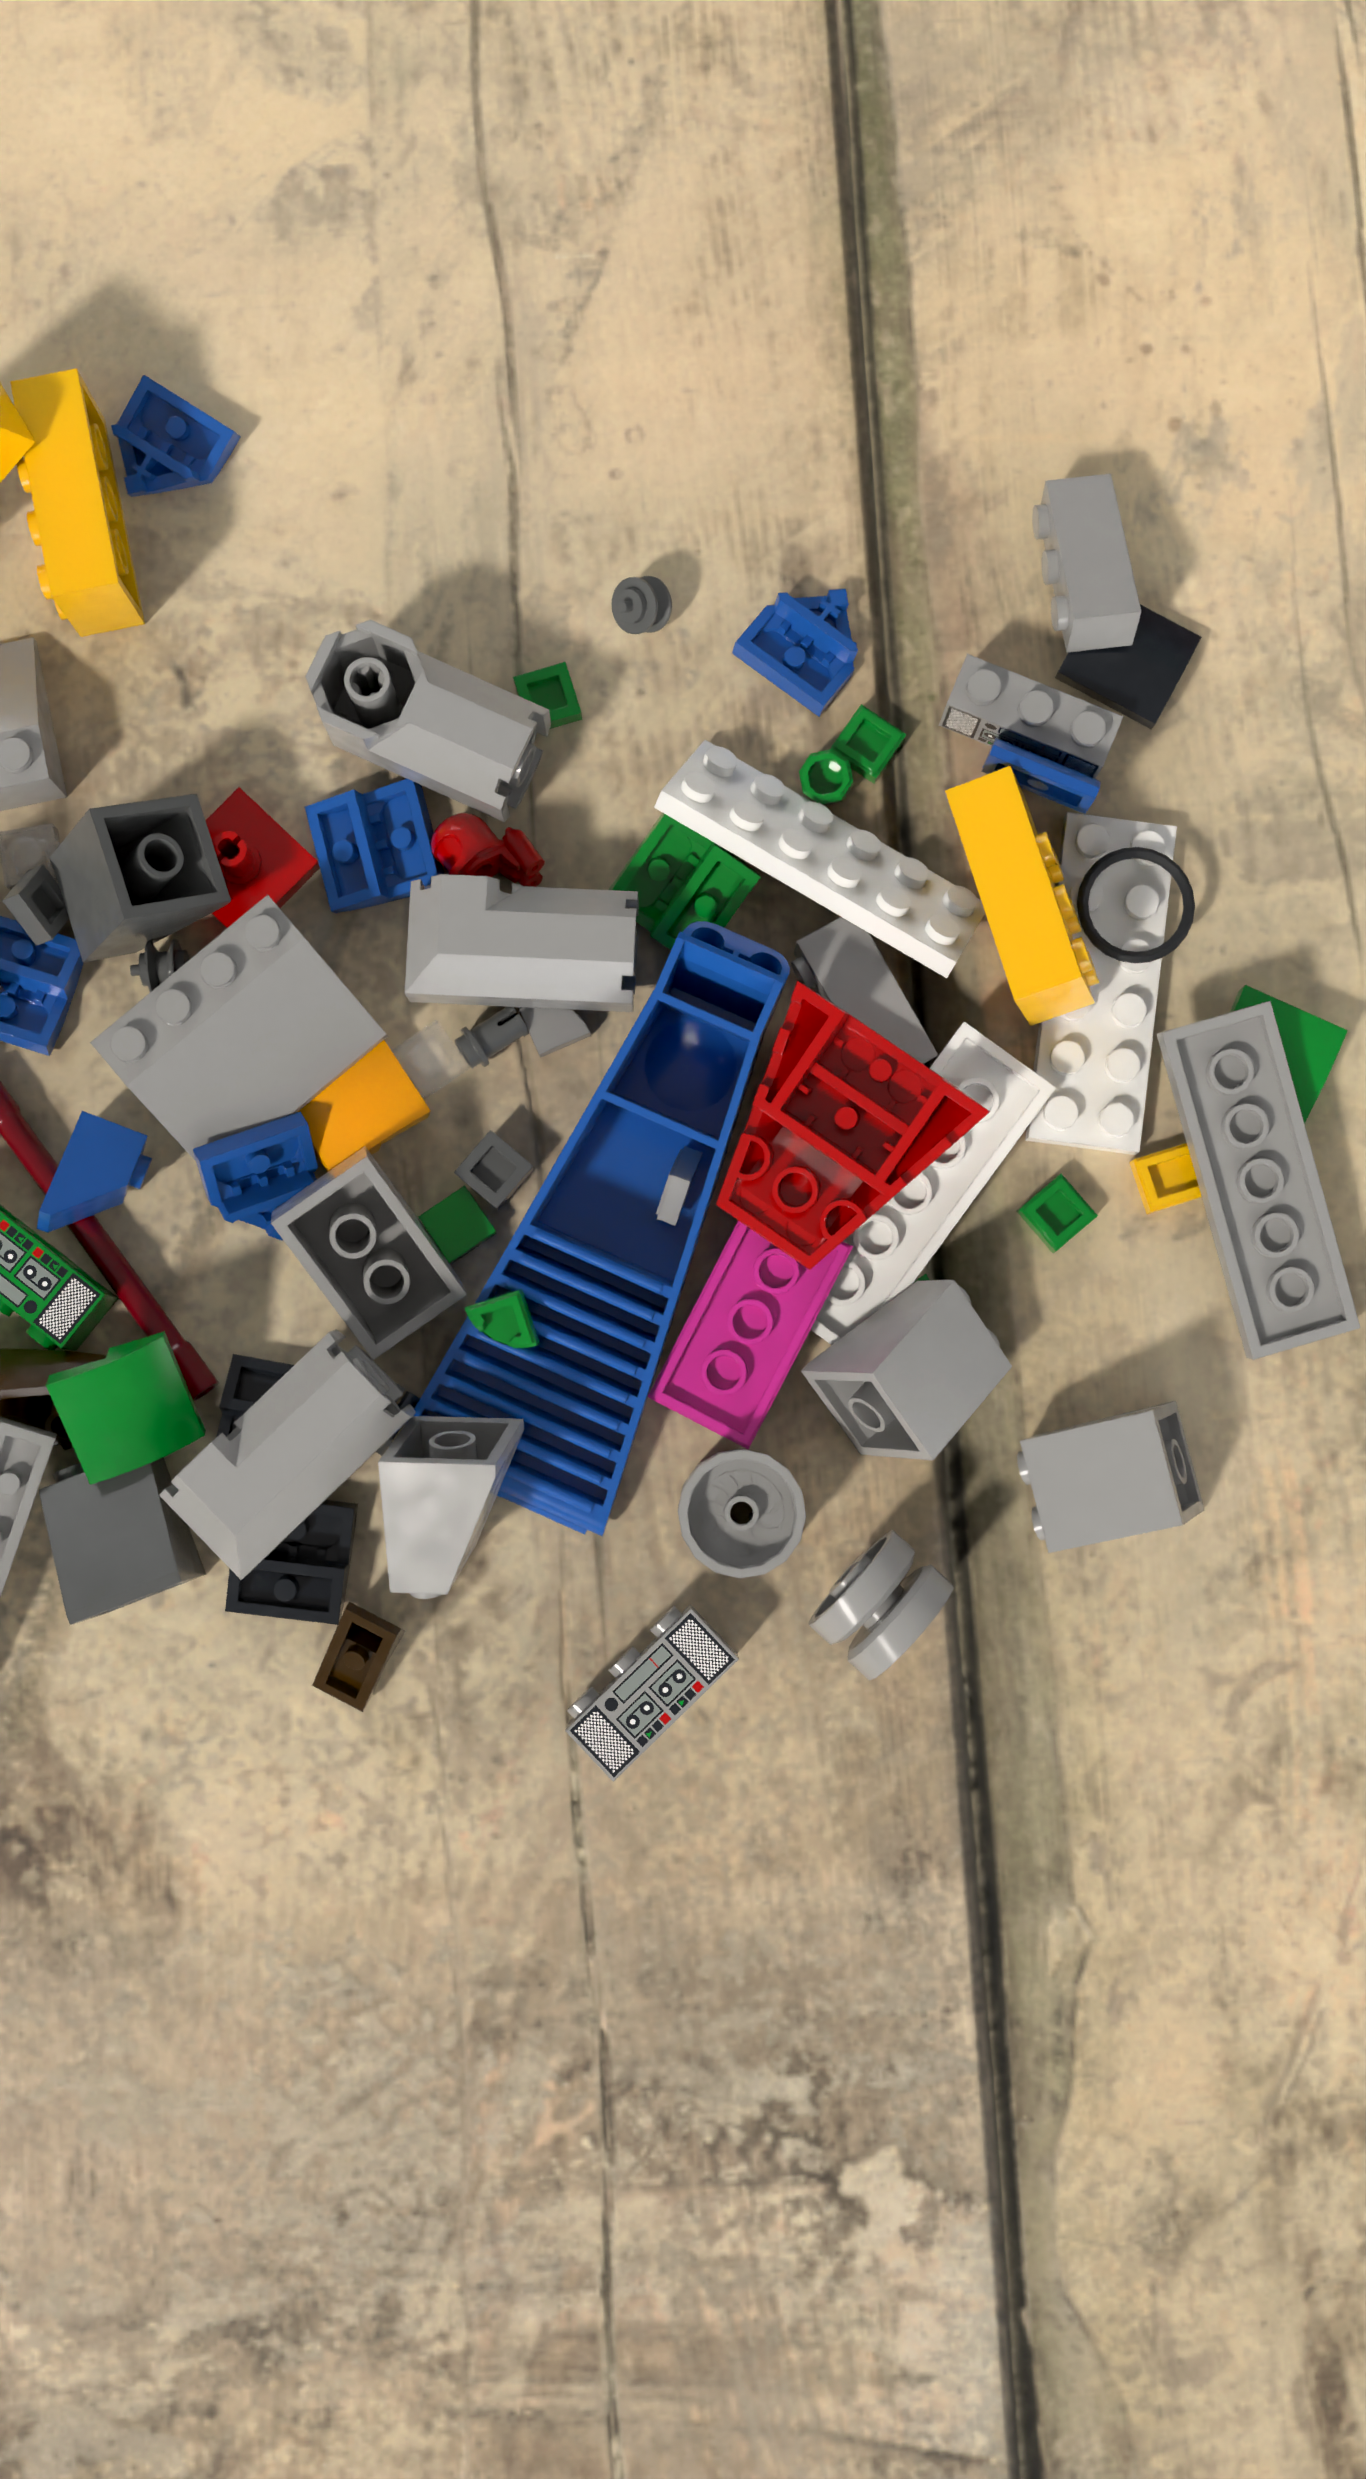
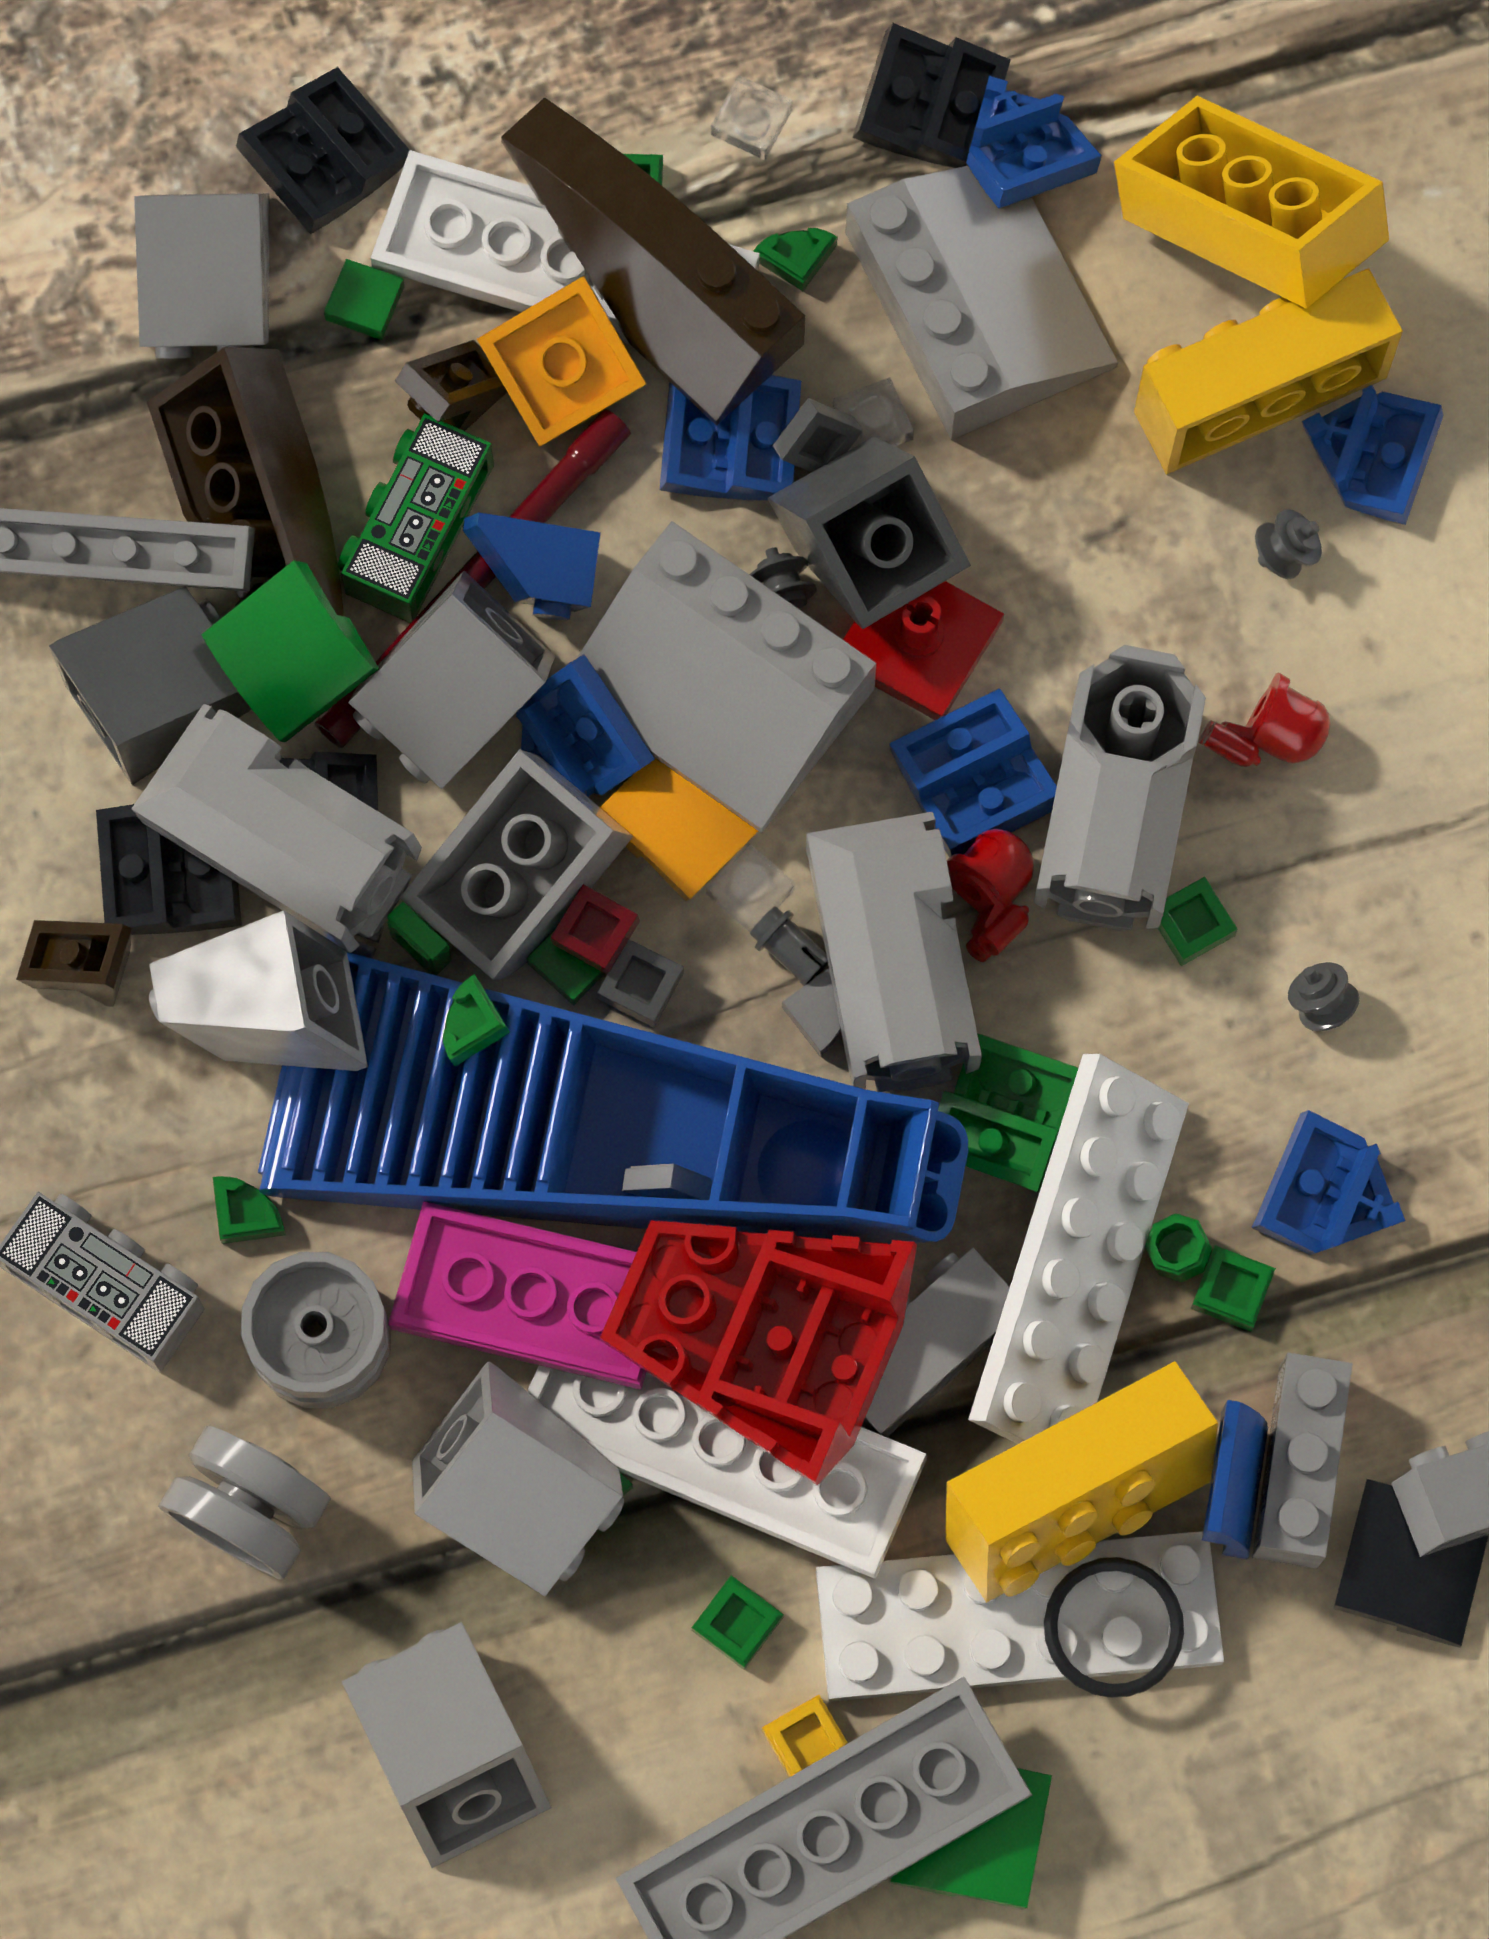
camera: 80 degrees right, 10 degrees down
(187, 1270) = (452, 682): none -> light grey slope
(237, 538) = (1288, 544): none -> dark grey wheel
(396, 580) = (1280, 725): none -> red piece
(411, 1352) = (418, 939): none -> green tile
(441, 1196) = (595, 929): none -> dark red plate
(614, 1553) = (244, 1212): none -> green tile

